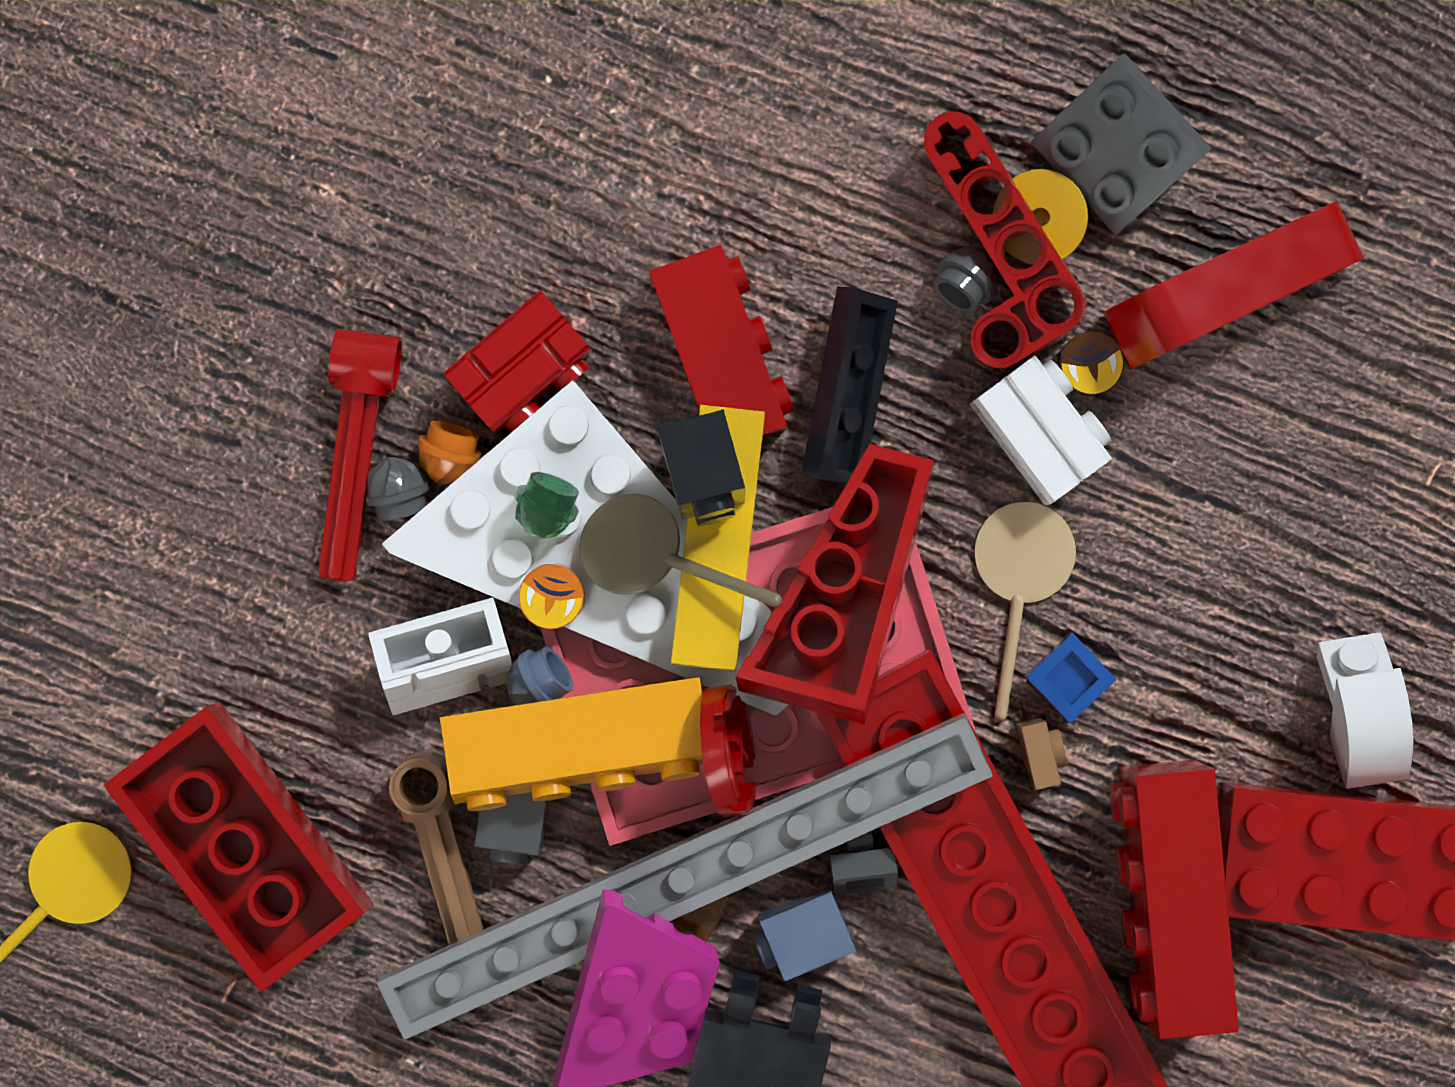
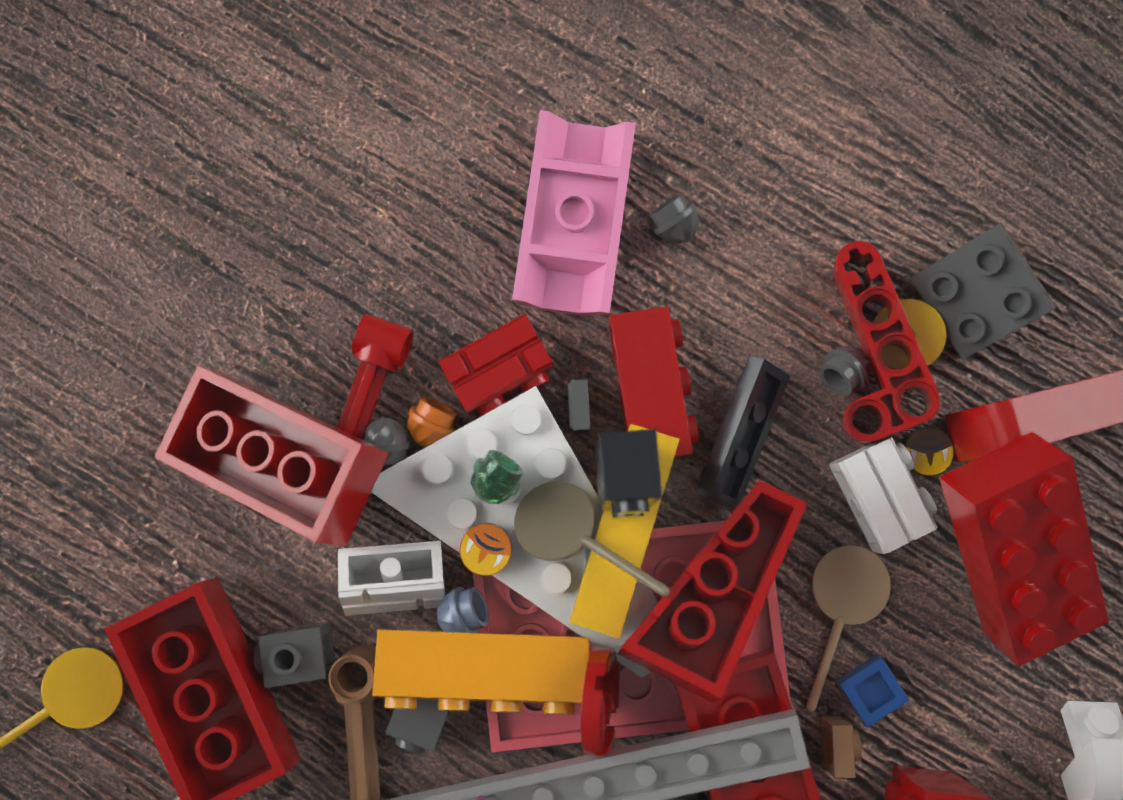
camera: 10 degrees right, 5 degrees down
(260, 534) = (271, 457): none -> red brick
(339, 776) = (295, 654): none -> dark grey brick
(577, 146) = (573, 216): none -> bright pink piece
(632, 394) = (578, 406): none -> dark grey tile
(711, 126) = (676, 220): none -> dark grey plate
(1215, 463) = (1026, 547): none -> red brick

